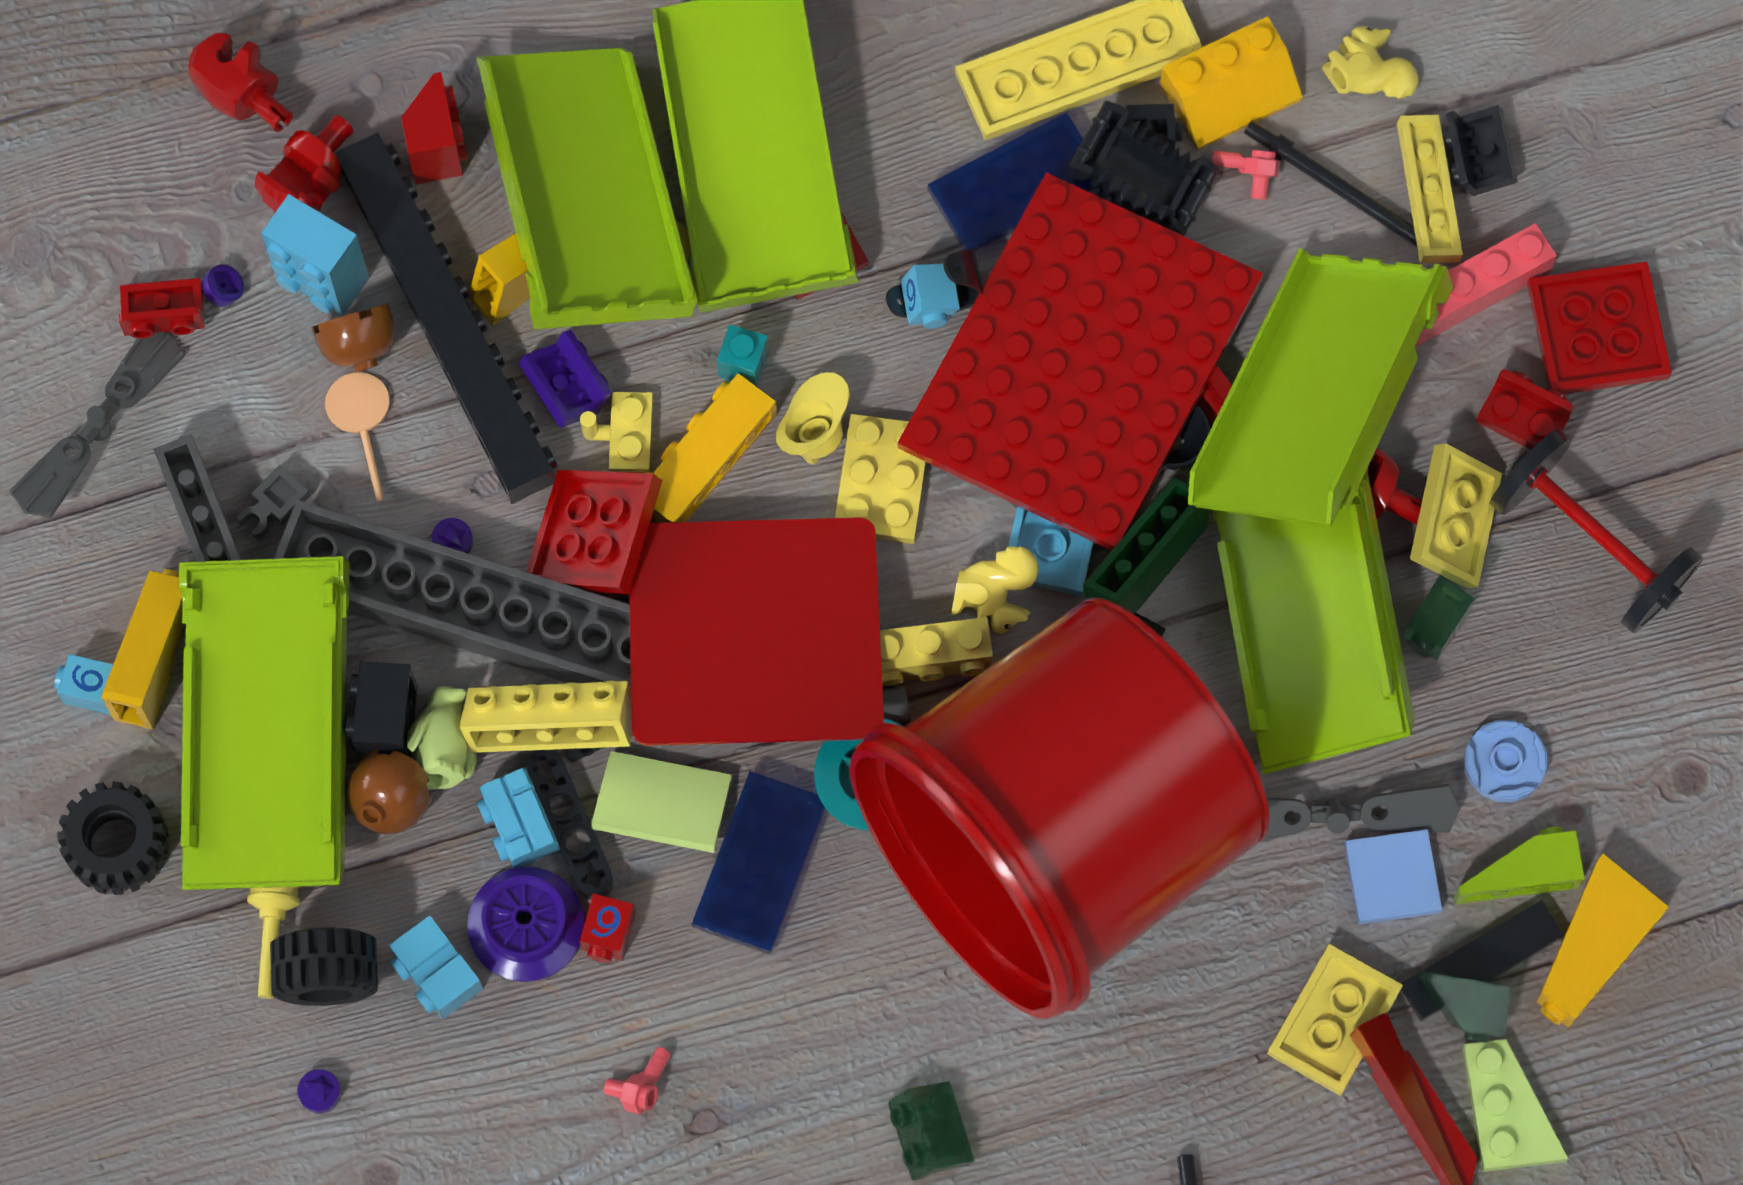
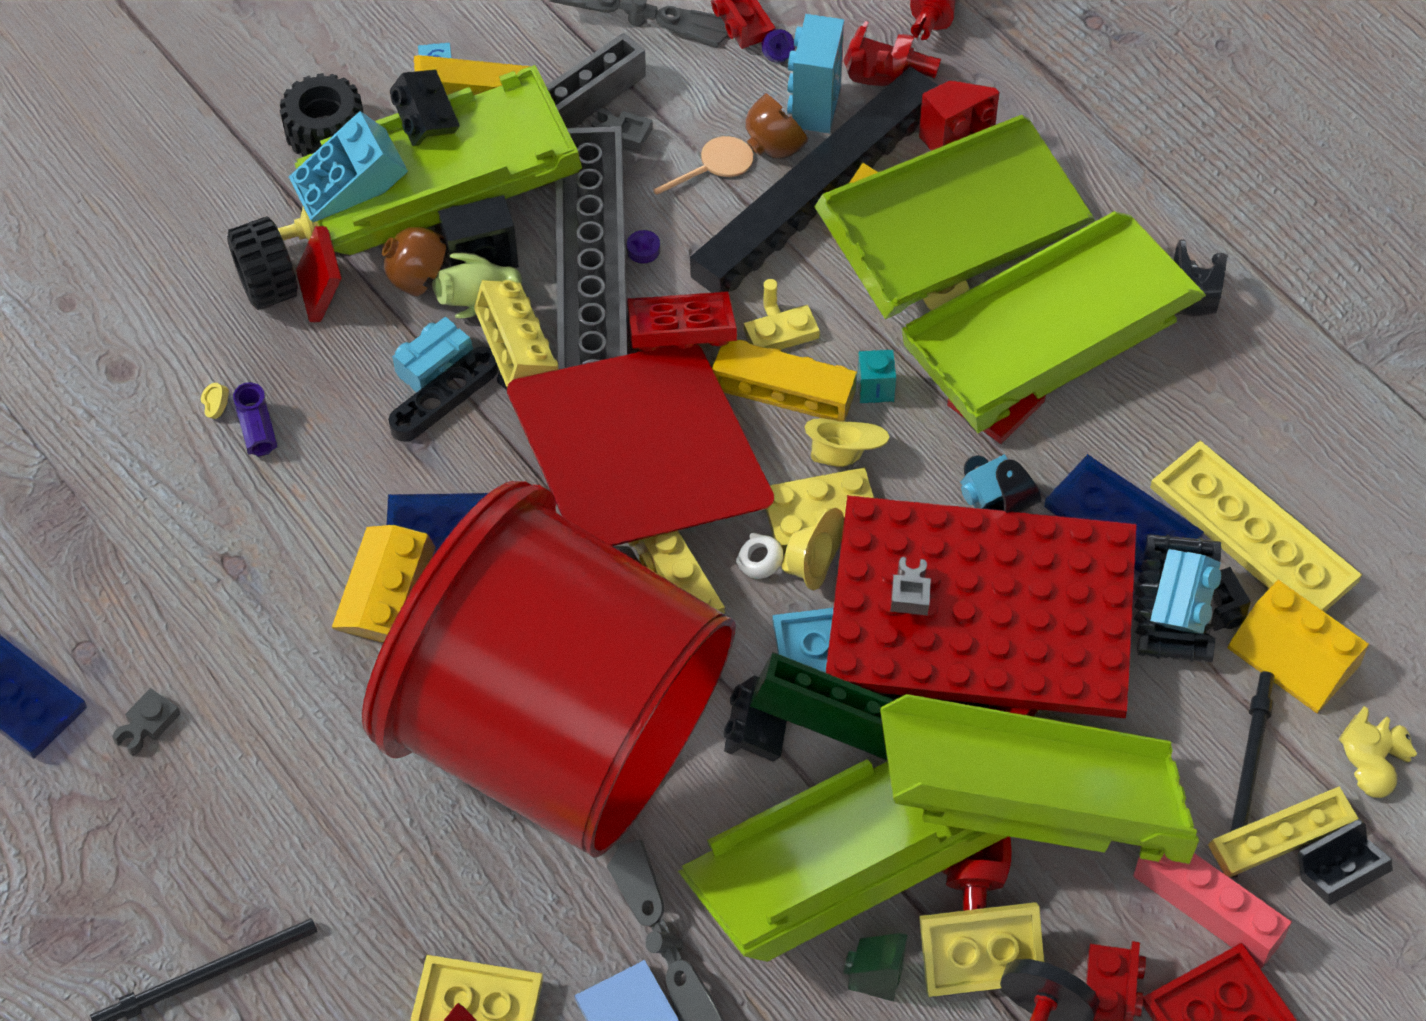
camera: 70 degrees right, 15 degrees down
(197, 708) = (423, 105): none -> black bracket
(247, 827) = (348, 169): none -> medium azure slope
(319, 1091) = (175, 307): dark purple tile -> none
(361, 905) = (318, 274): none -> red tile
(435, 968) = (295, 344): medium azure brick -> none
(476, 1079) = (215, 399): none -> light yellow piece
(532, 949) = (352, 391): dark purple piece -> none
(534, 1042) = (254, 419): none -> dark purple piece
(566, 379) = (801, 269): dark purple bracket -> none
(607, 928) = (364, 441): red brick -> none
(639, 1090) = (239, 506): coral piece -> none
(661, 801) = (482, 443): yellowish green tile -> none
(812, 963) = (381, 580): none -> yellow slope
(930, 1130) = (274, 722): clear green bracket -> none
(937, 511) = (814, 548): none -> light yellow piece
(937, 566) = (765, 567): none -> white piece
(987, 585) = (756, 605): light yellow animal -> none
(1056, 424) = (911, 589): none -> plate
(1154, 158) = (1186, 591): none -> medium azure brick
(1260, 165) = (1234, 692): coral piece -> none

